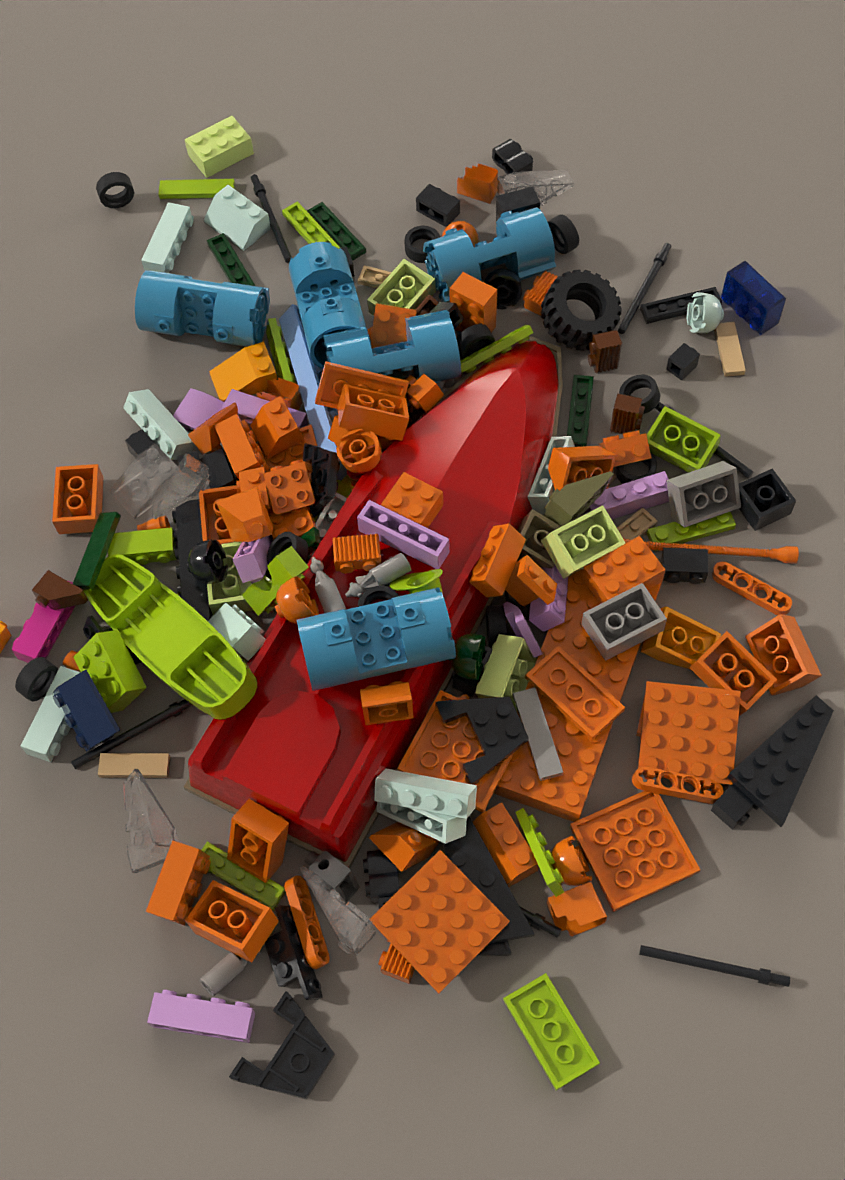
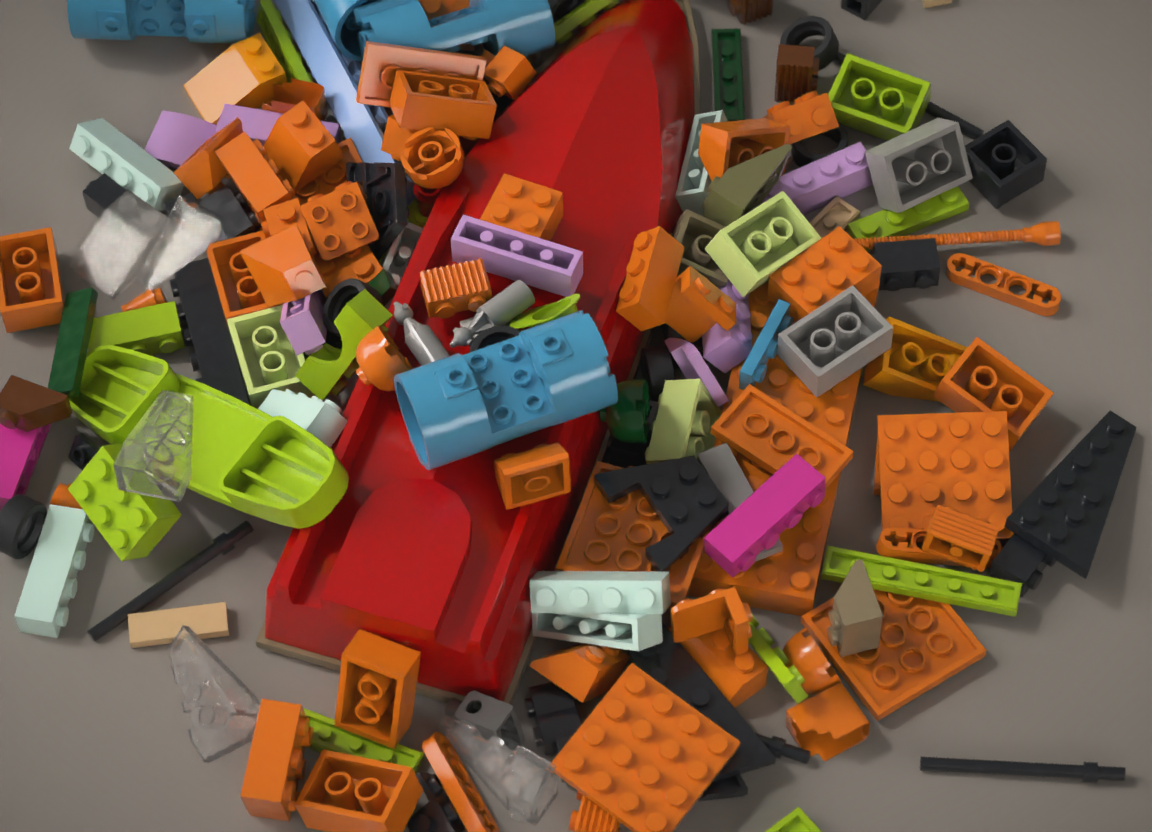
camera: 10 degrees left, 5 degrees down
(85, 711) = (102, 555): dark blue slope -> none
(134, 641) = (159, 449): none -> clear wedge
(207, 563) = (238, 337): black cylinder -> none
(507, 818) = (713, 612): none -> orange bracket
(553, 750) = (765, 516): none -> dark pink brick
(574, 617) = (765, 345): none -> dark azure plate
(608, 832) = (855, 614): none -> dark tan slope
(661, 810) = (926, 581): none -> lime tile
(693, 782) = (960, 538): none -> orange brick
(784, 654) = (1061, 361): orange slope -> none

